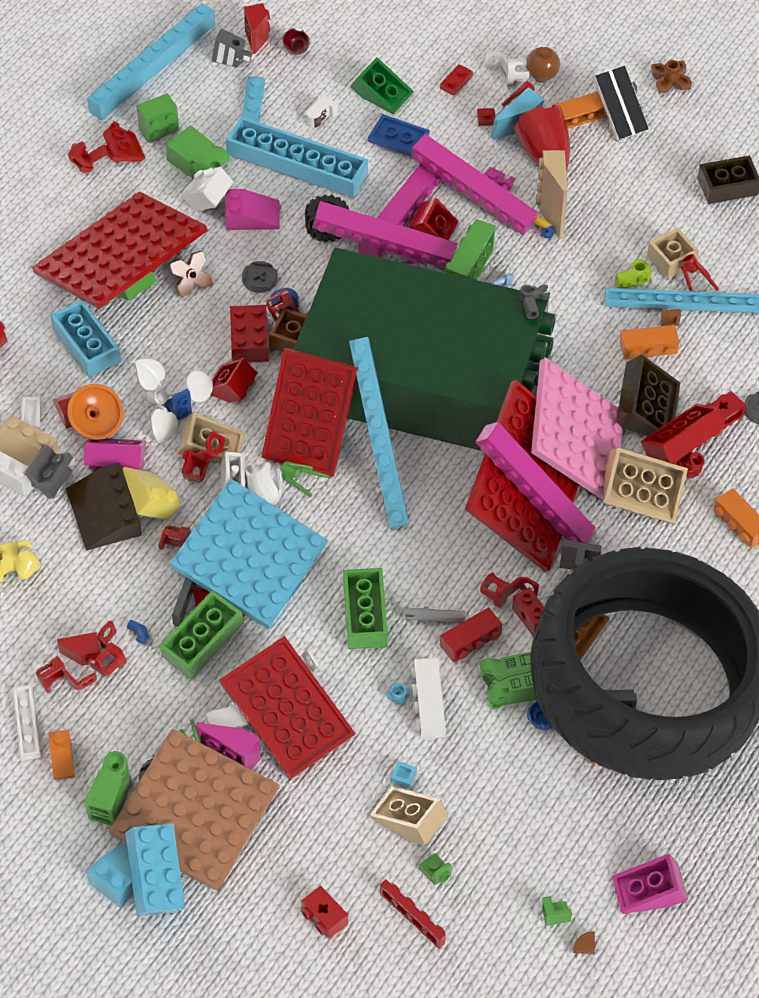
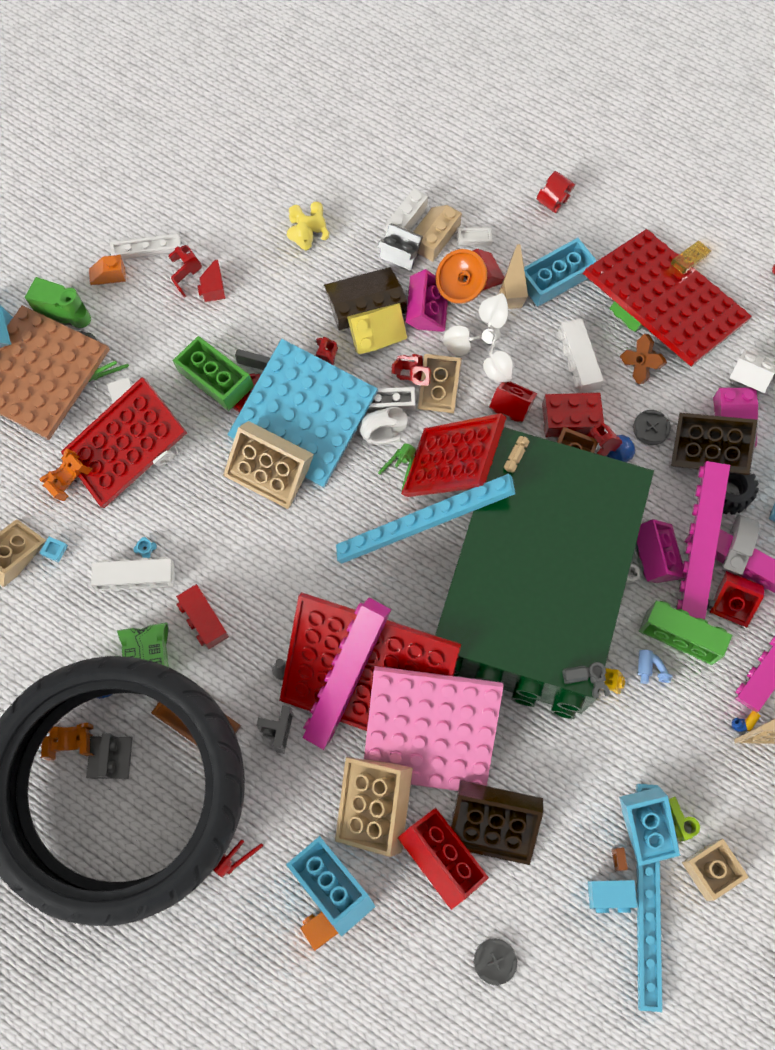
camera: 90 degrees right, 15 degrees up
(72, 230) = (691, 257): none -> clear yellow tile
(98, 368) = (514, 282): none -> tan slope
(109, 648) = (201, 304): red piece -> none
(140, 629) = (230, 330): blue arm -> none
(180, 404) = (479, 352): blue bracket -> none
(182, 325) = (580, 356): none -> white brick
(231, 742) = (91, 396): dark pink slope -> none
(286, 223) = (714, 440): none -> dark brown slope
(307, 581) = (267, 464): none -> tan slope
(317, 769) = (60, 479): none -> orange piece
(321, 343) = (516, 454): none -> tan axle
(365, 608) = (235, 516): bright green brick -> none
(385, 207) = (744, 539): none -> light grey arch
(434, 615) = (229, 584): light grey pin -> none
(505, 589) = (245, 646): red piece -> none
(519, 566) = (279, 669): none -> dark grey cone
(528, 609) = (223, 677): red brick -> none
(640, 291) = (650, 825): none -> medium azure slope
(649, 342) = (581, 831): orange brick -> none
(691, 264) = (692, 889): red plant -> none
(693, 462) = (407, 867): red piece -> none
(699, 324) = (612, 895): none -> medium azure brick
(716, 510) = (331, 886): none -> medium azure brick
(730, 406) = (487, 924): red brick -> none

